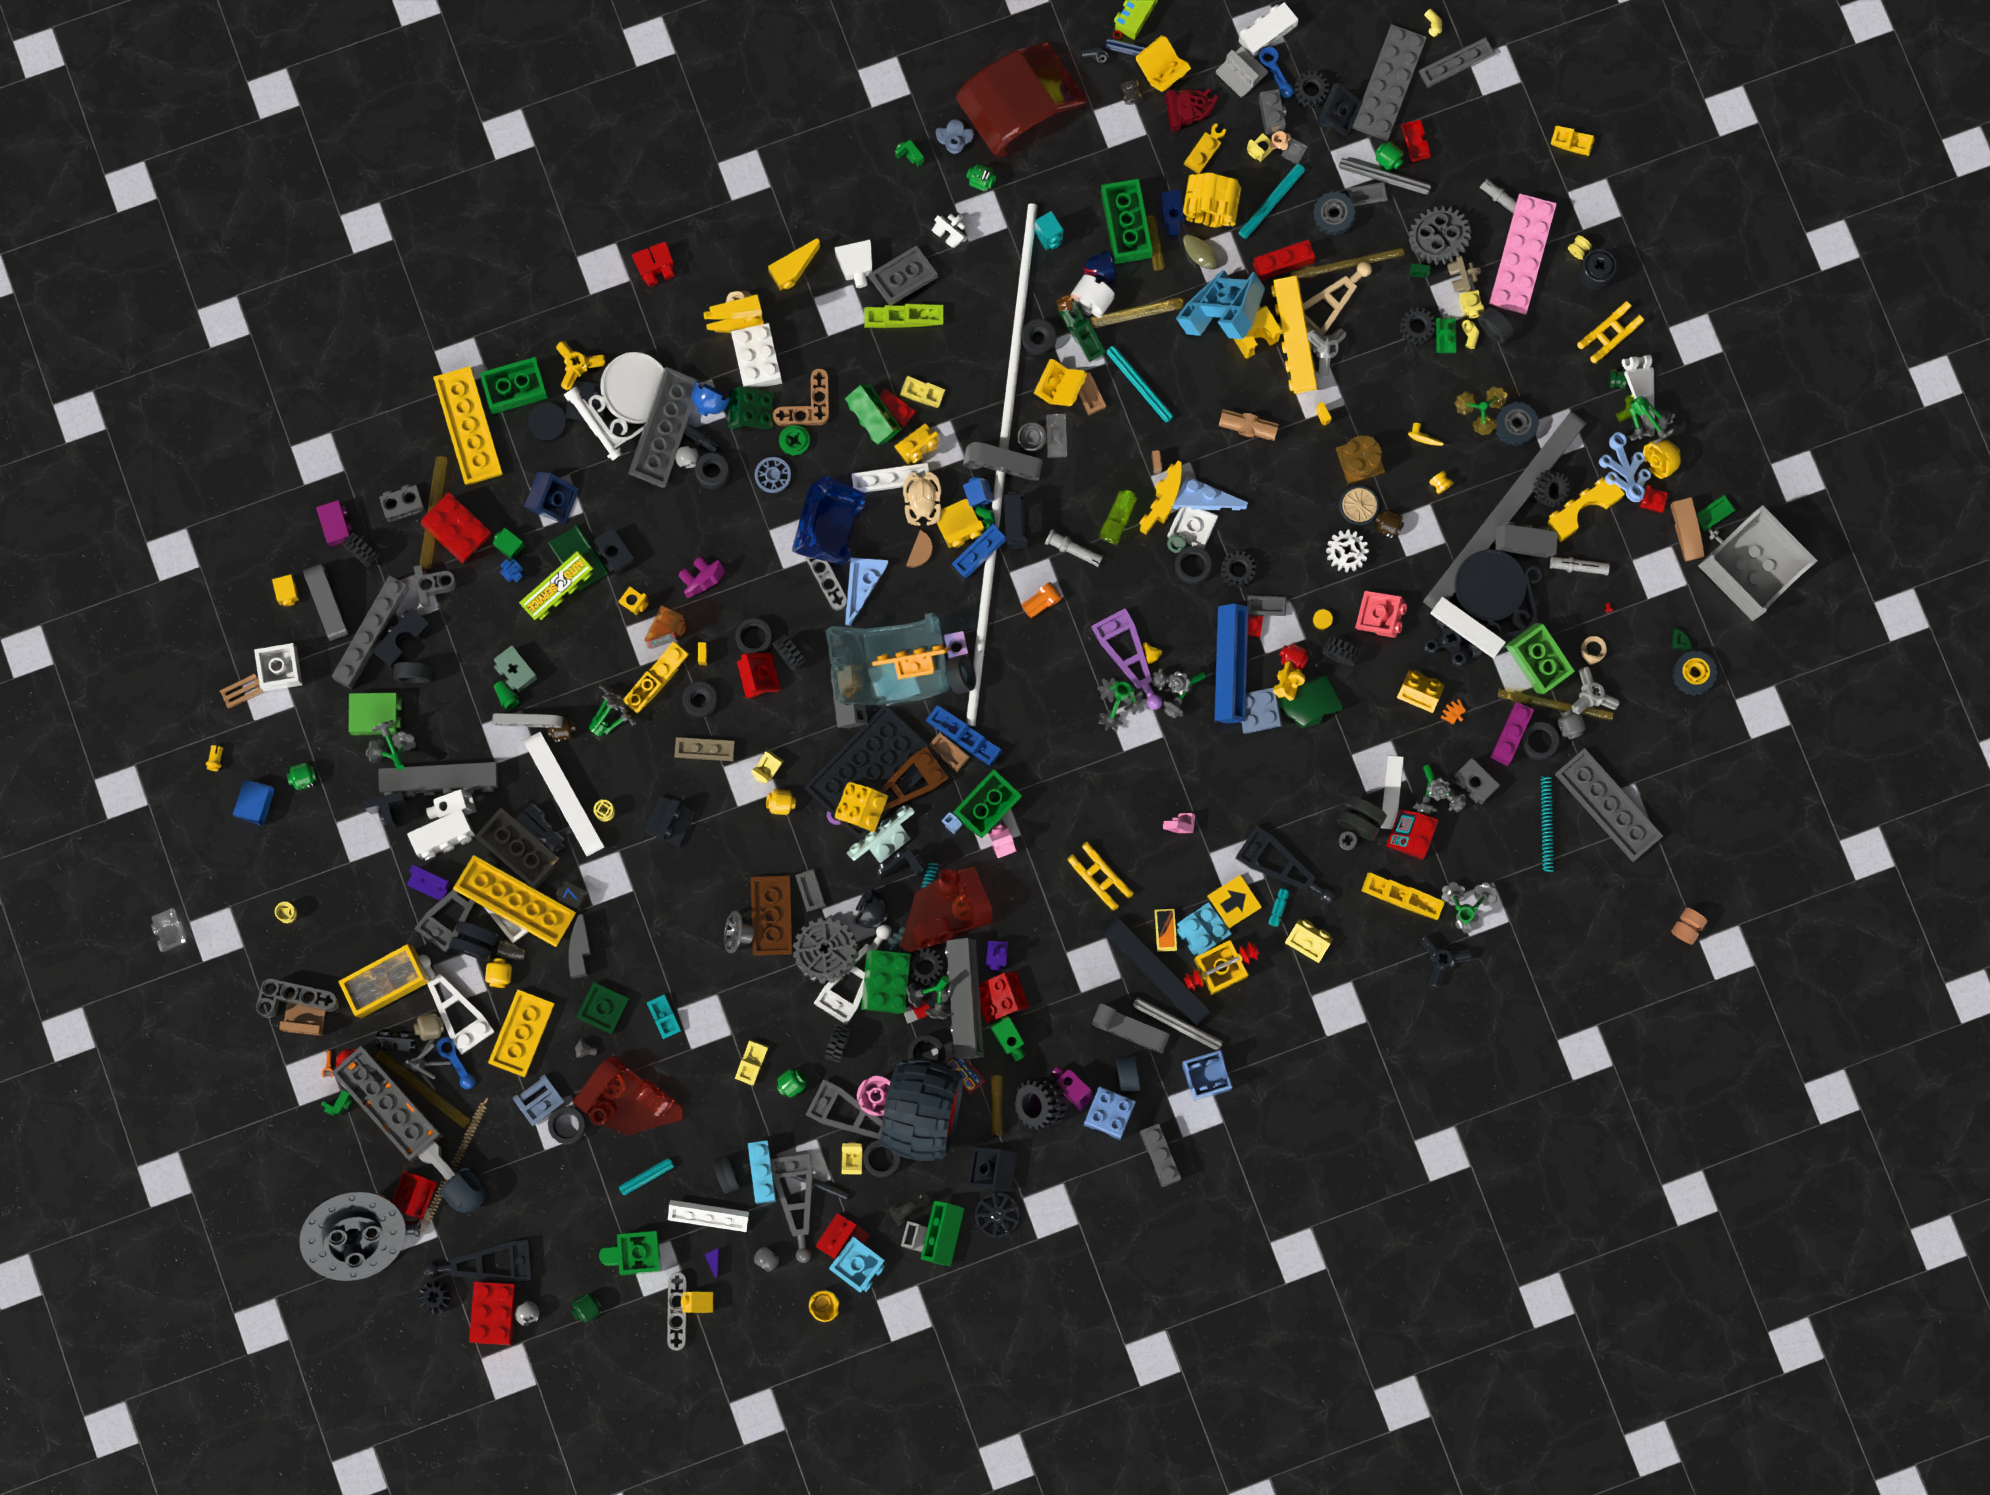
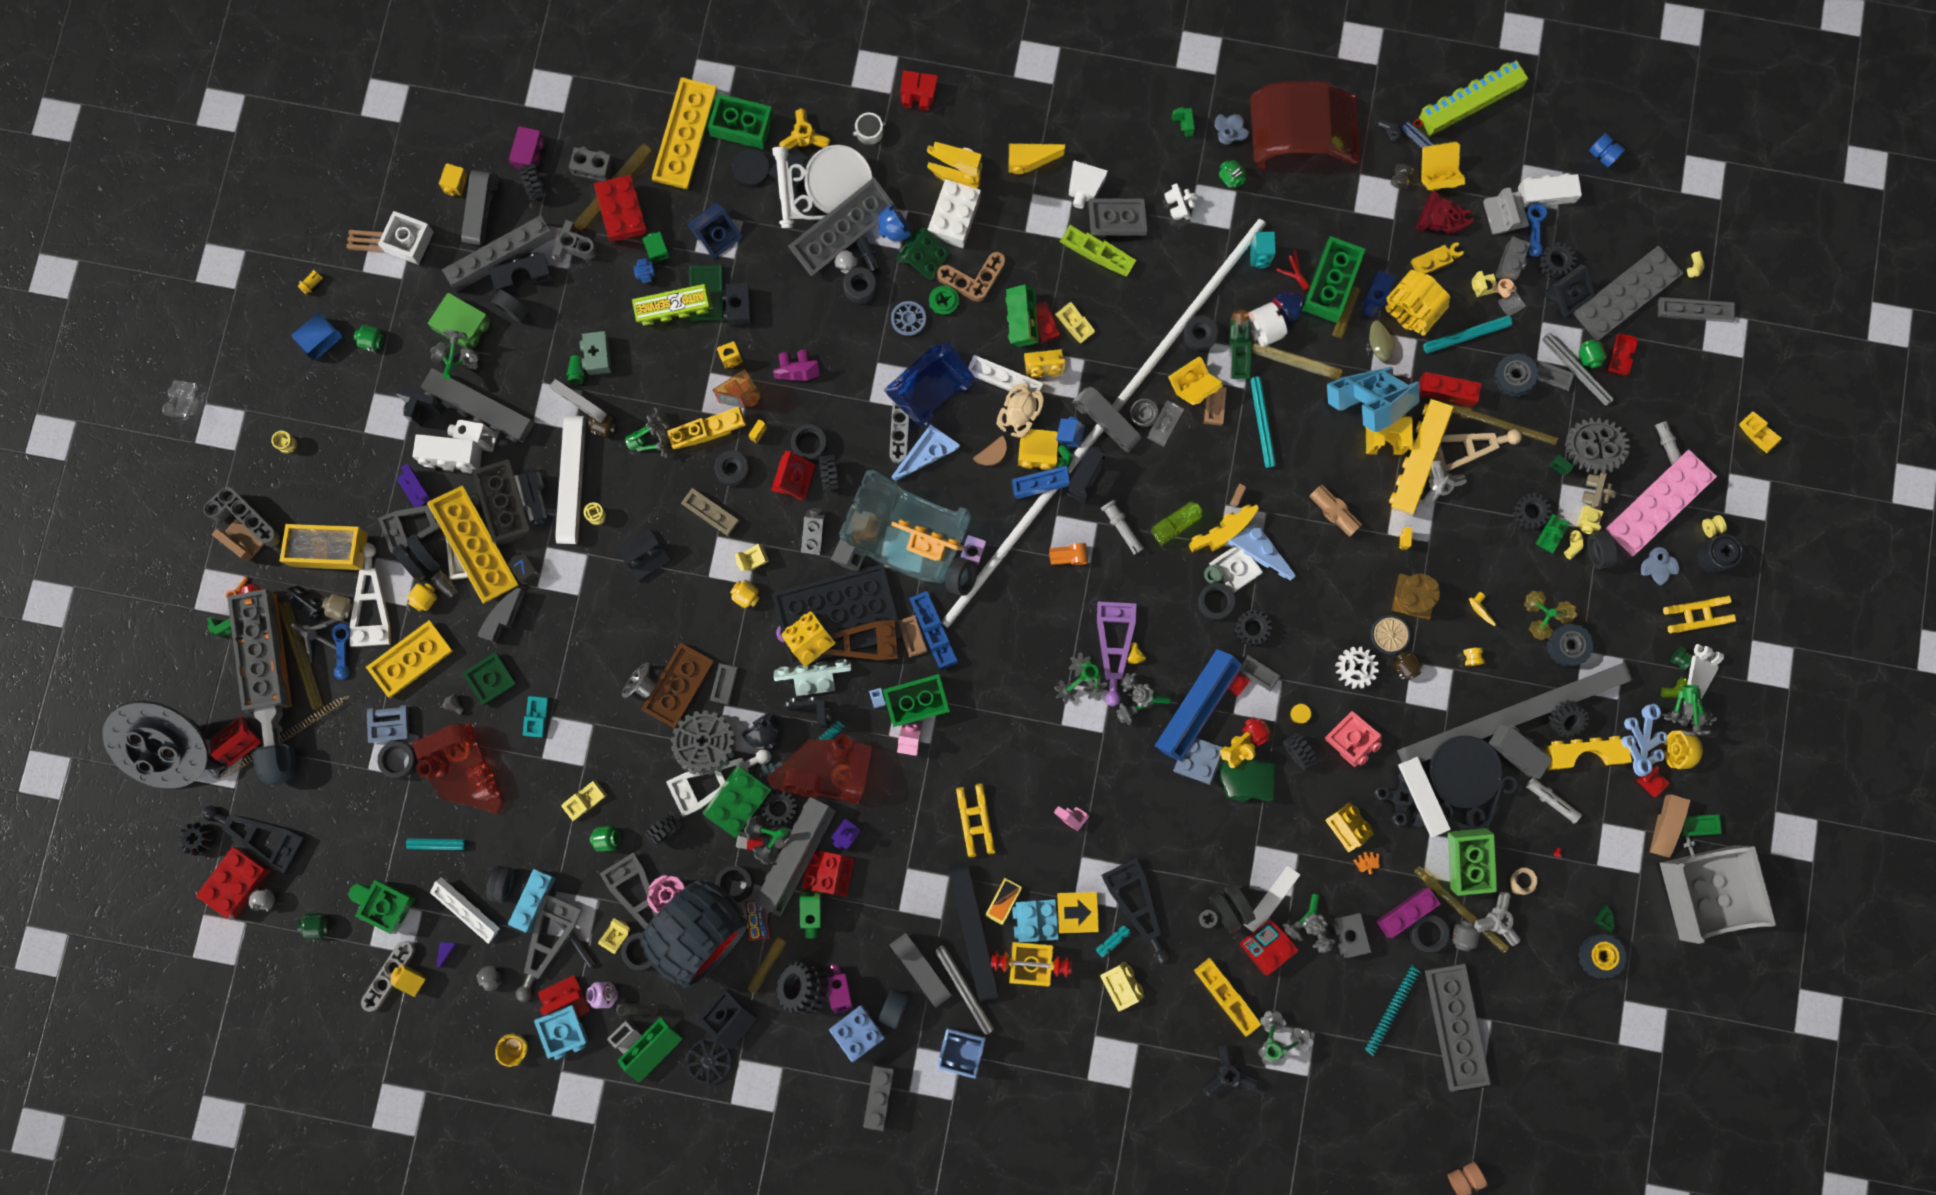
camera: 30 degrees right, 0 degrees up
(632, 324) = (869, 128): none -> piece
(806, 712) = (812, 531): none -> bracket
(872, 1213) = (602, 995): none -> lavender head
(1093, 235) = (1299, 277): none -> red plant
(1556, 311) = (1659, 568): none -> sand blue plate

